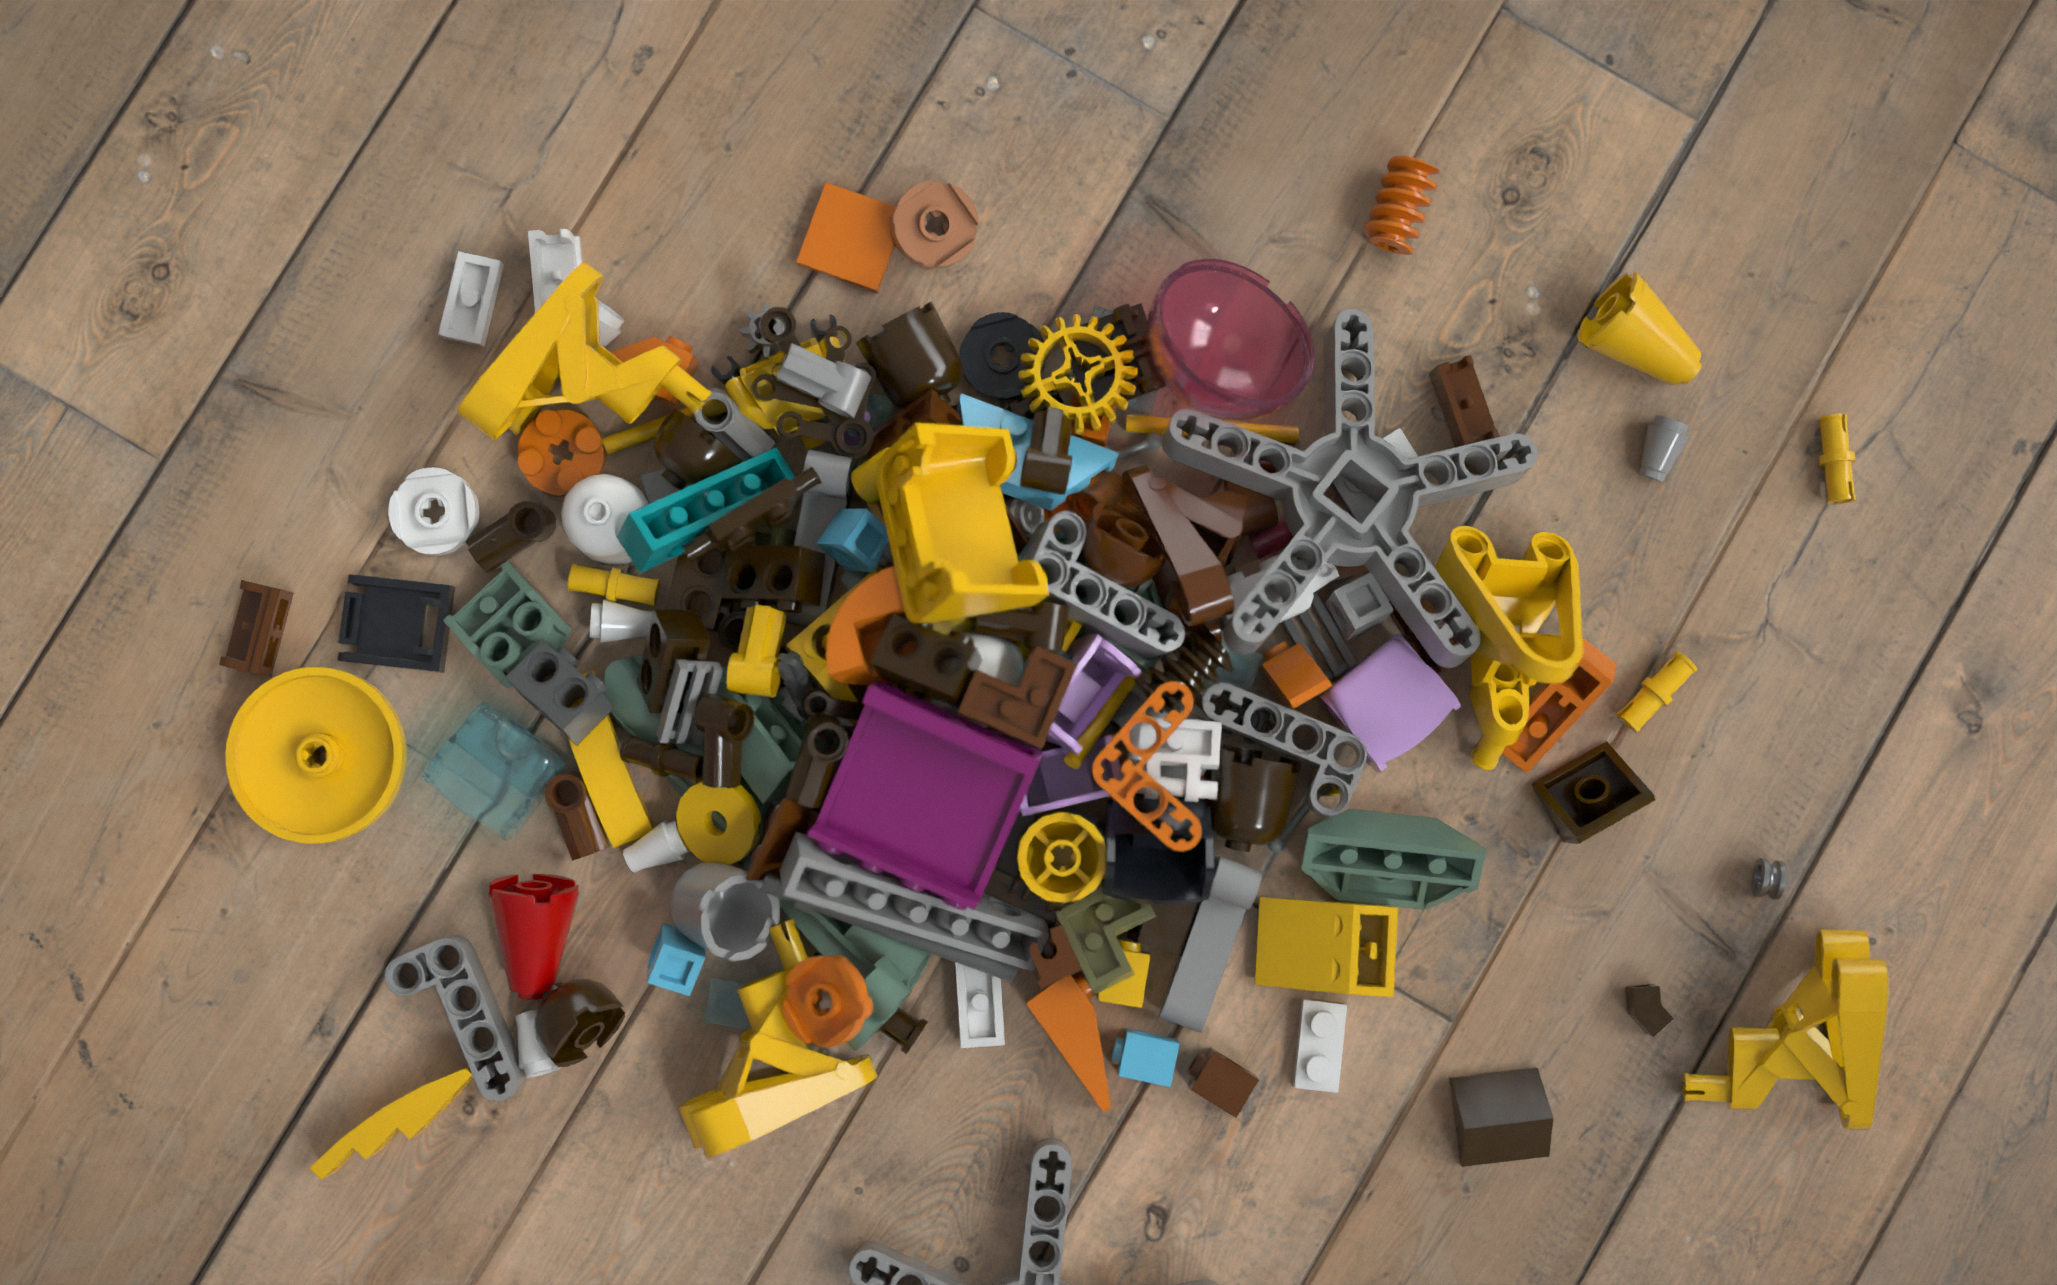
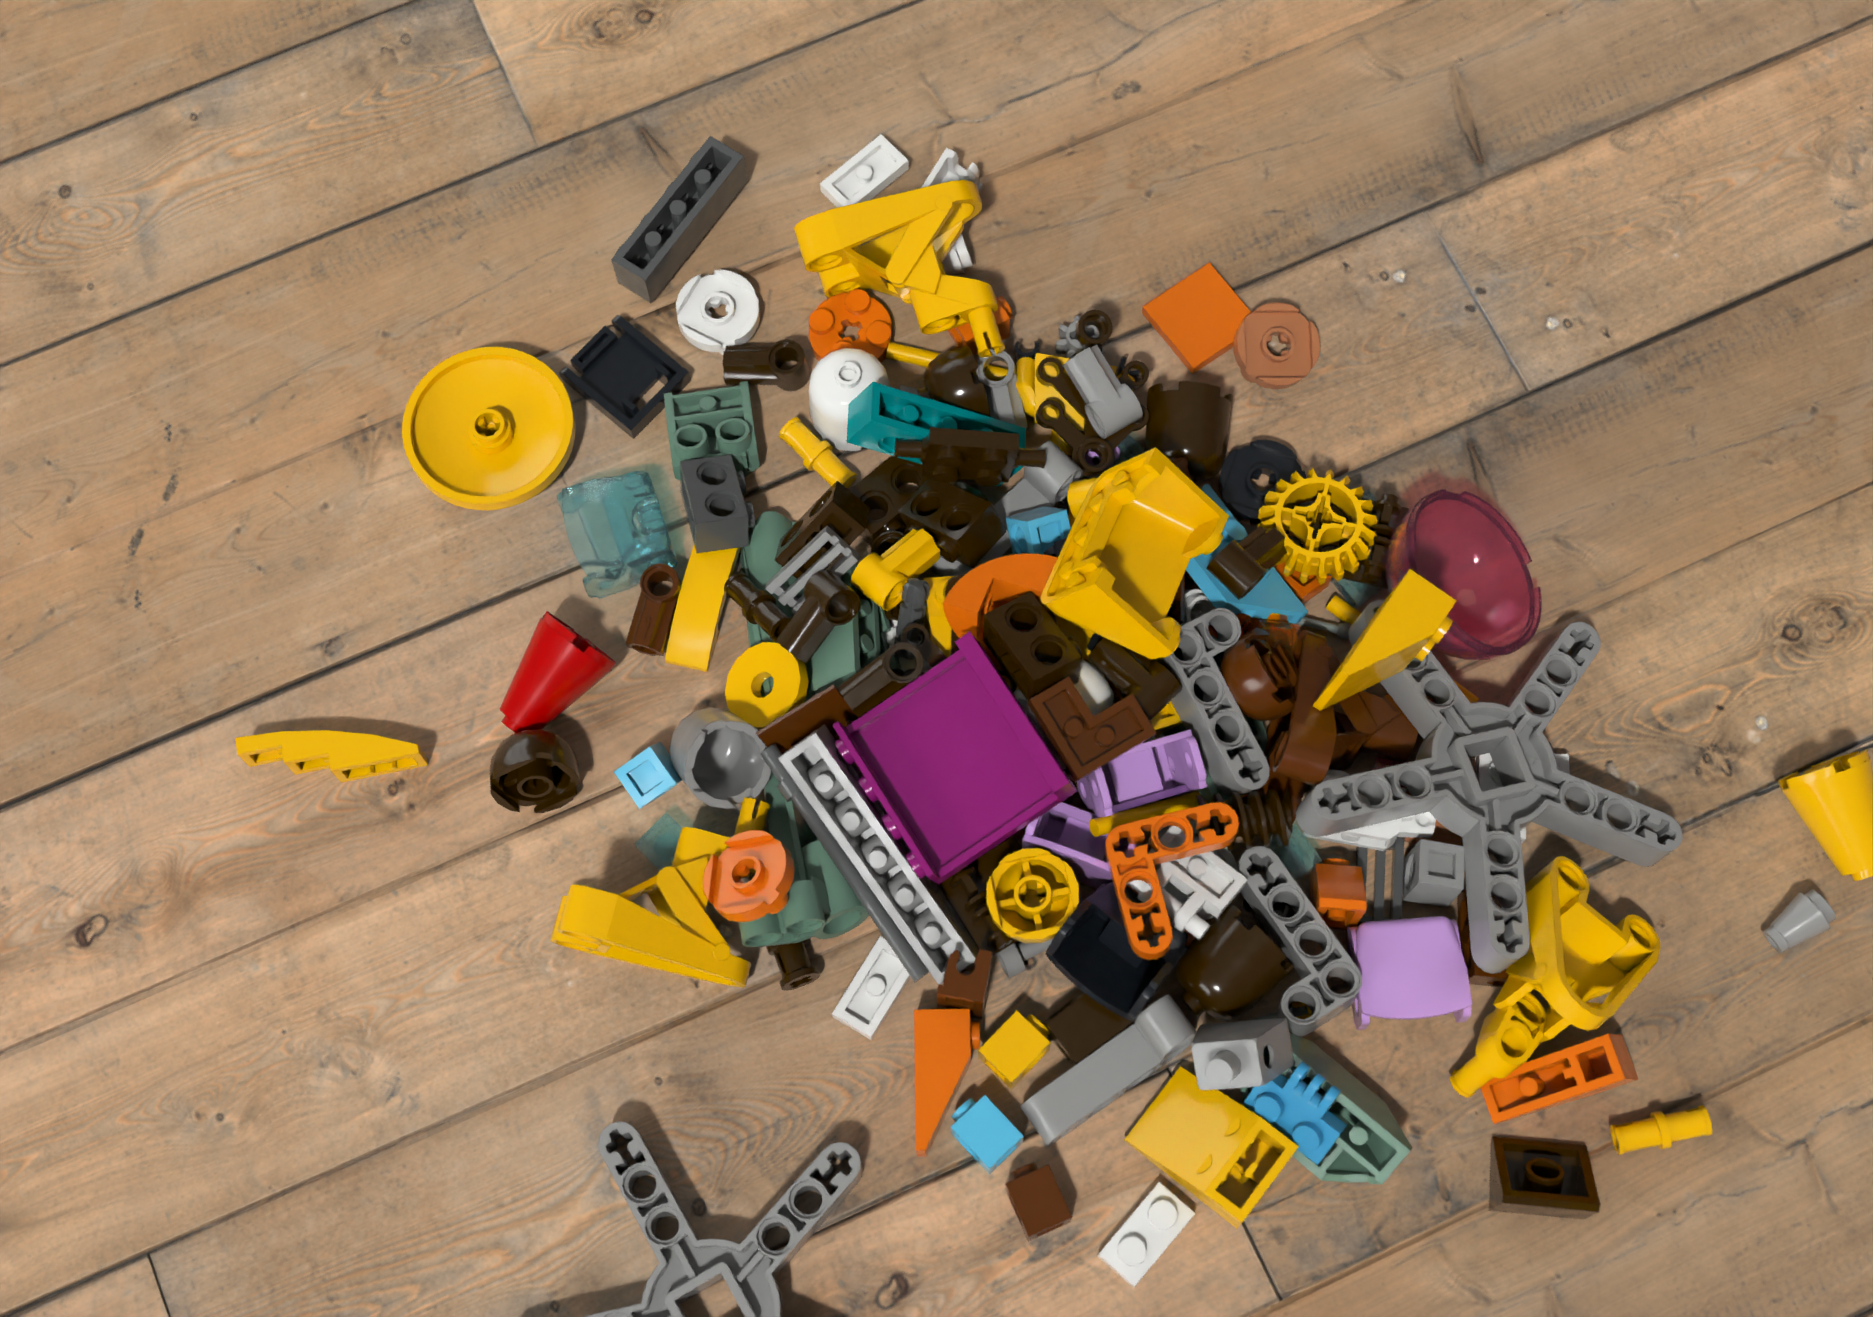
camera: 40 degrees right, 15 degrees down
(258, 629) = (518, 310): reddish brown hinge -> none
(340, 452) = (680, 219): none -> dark grey brick
(465, 1021) = (446, 713): light grey beam -> none
(530, 1054) = (476, 776): white cone -> none
(618, 622) = (796, 483): white cone -> none
(656, 848) = (699, 680): white cone -> none
(1092, 933) = (1014, 985): olive plate -> none
(1212, 441) = (1400, 630): none -> yellow slope
(1309, 871) = (1233, 1056): none -> light grey torso
(1378, 879) = (1299, 1111): none -> dark azure hinge
(1398, 204) = (1688, 572): orange piece -> none
(1462, 402) = (1641, 762): reddish brown hinge -> none

